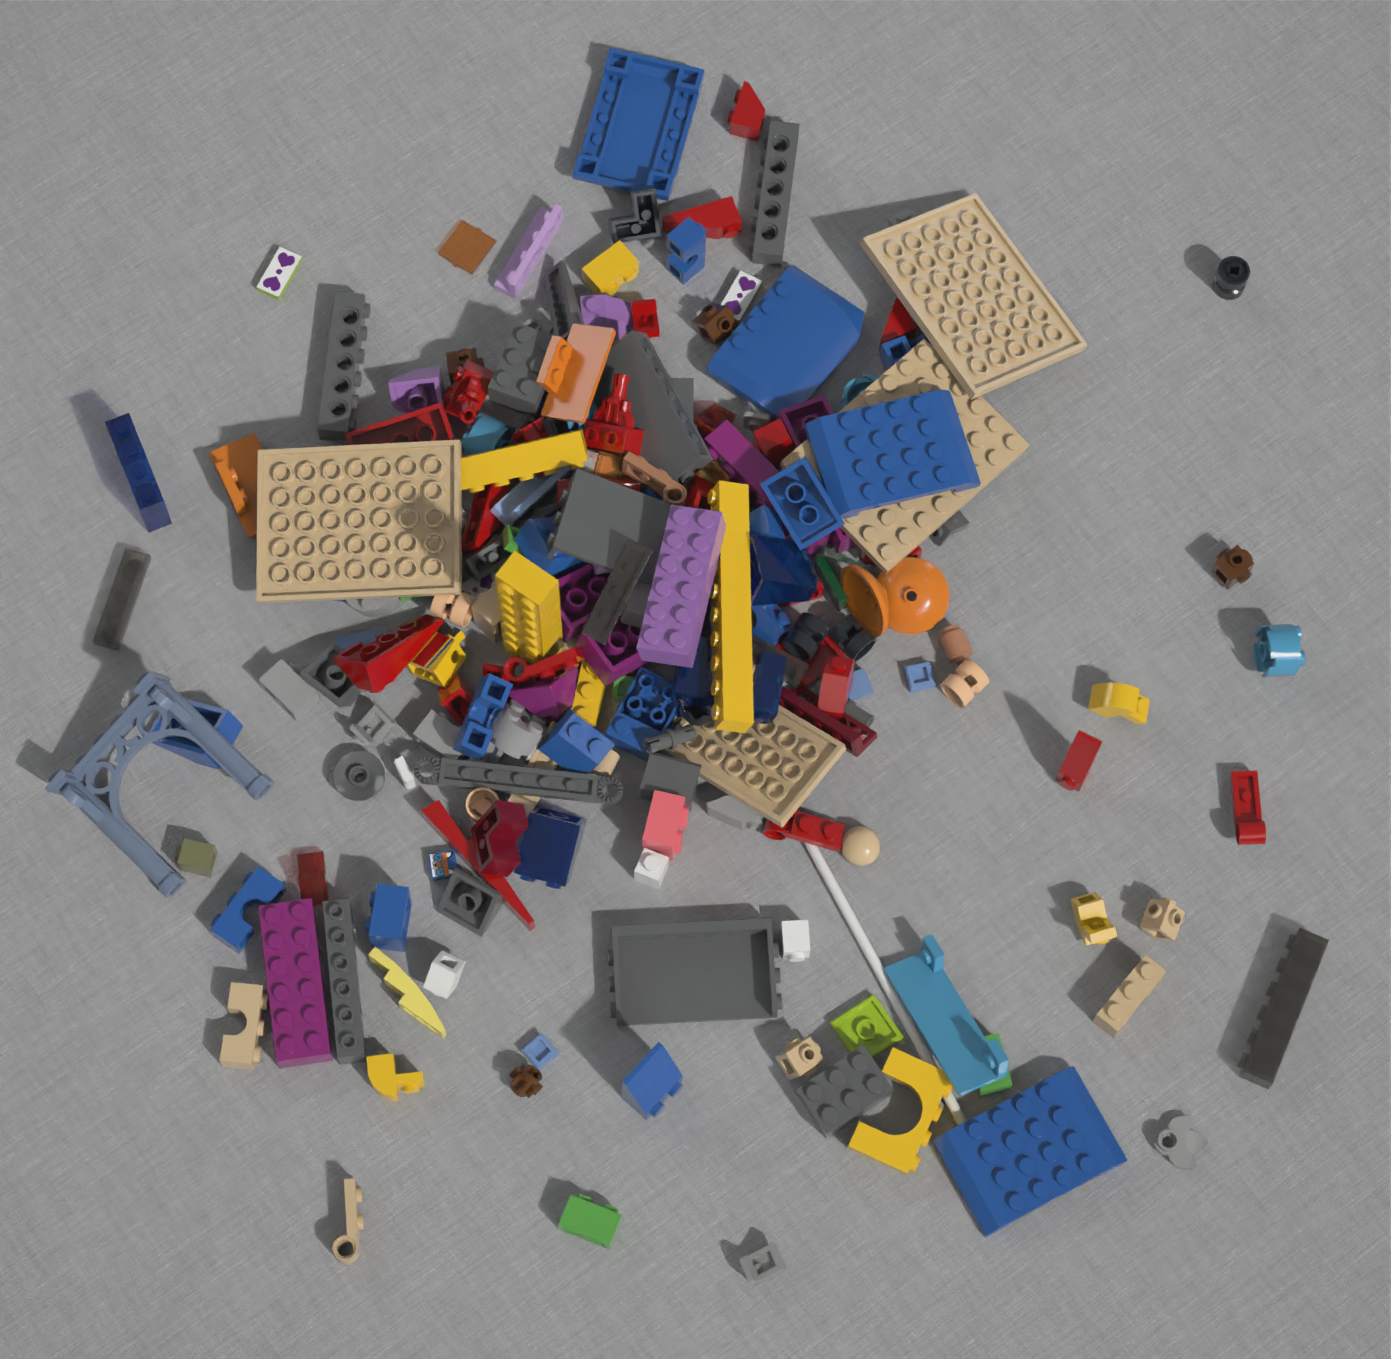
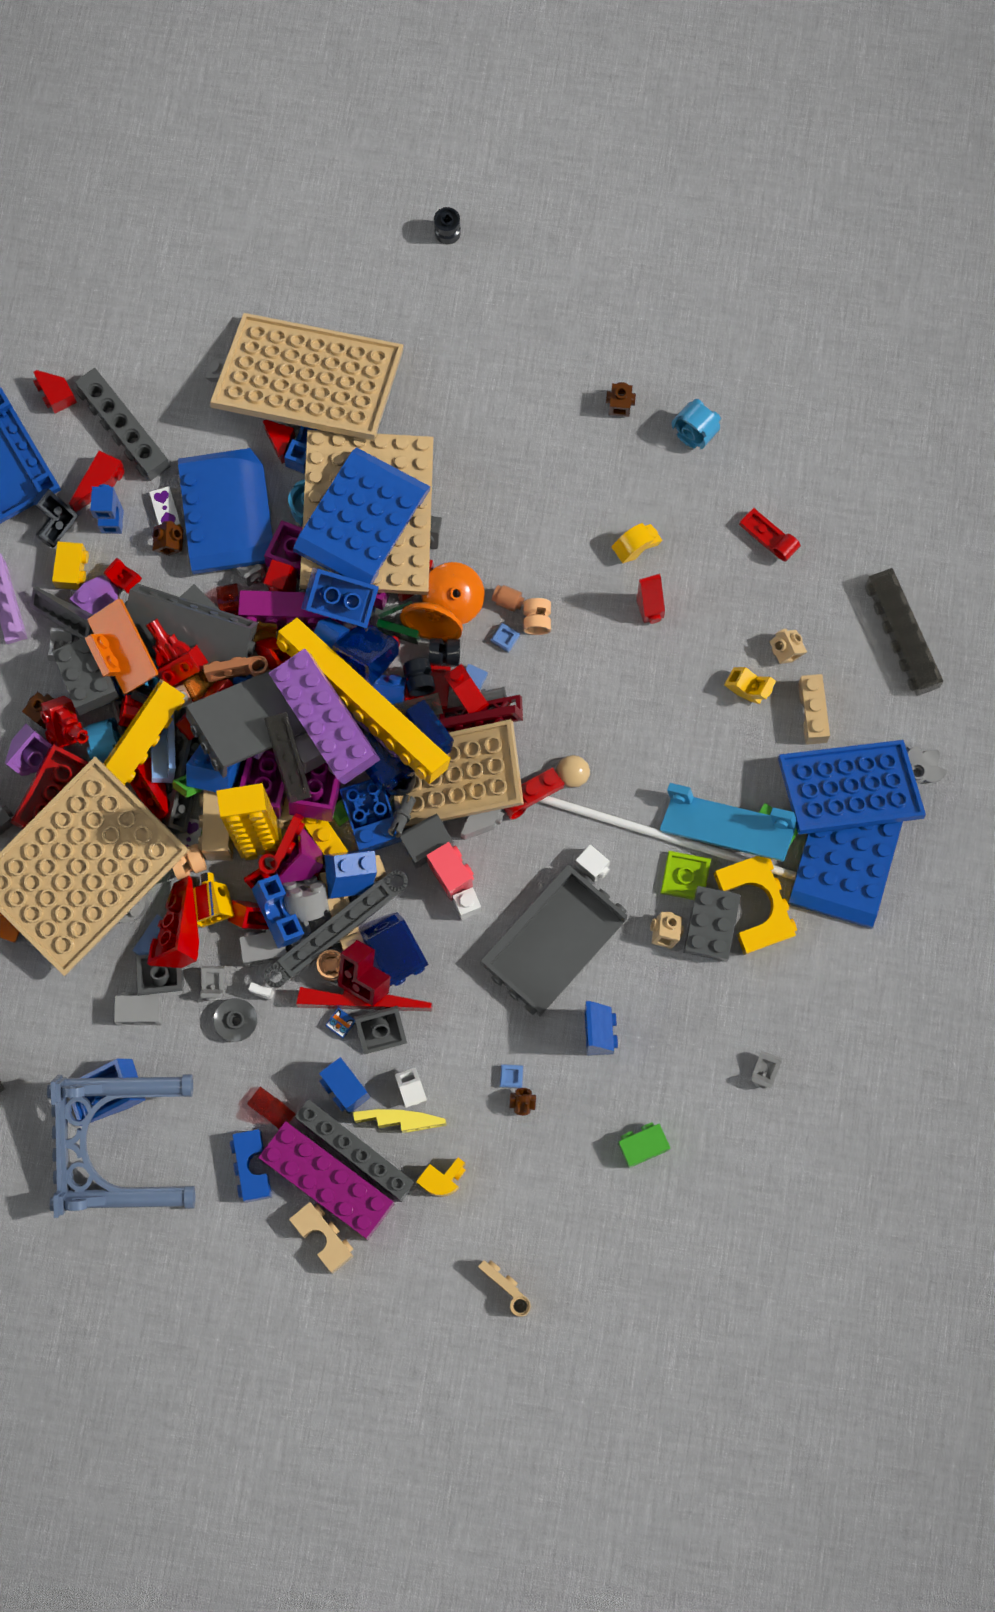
camera: 40 degrees left, 5 degrees up
(196, 857) = (187, 1166): olive brick -> none
(1091, 1094) = (851, 786): none -> blue plate

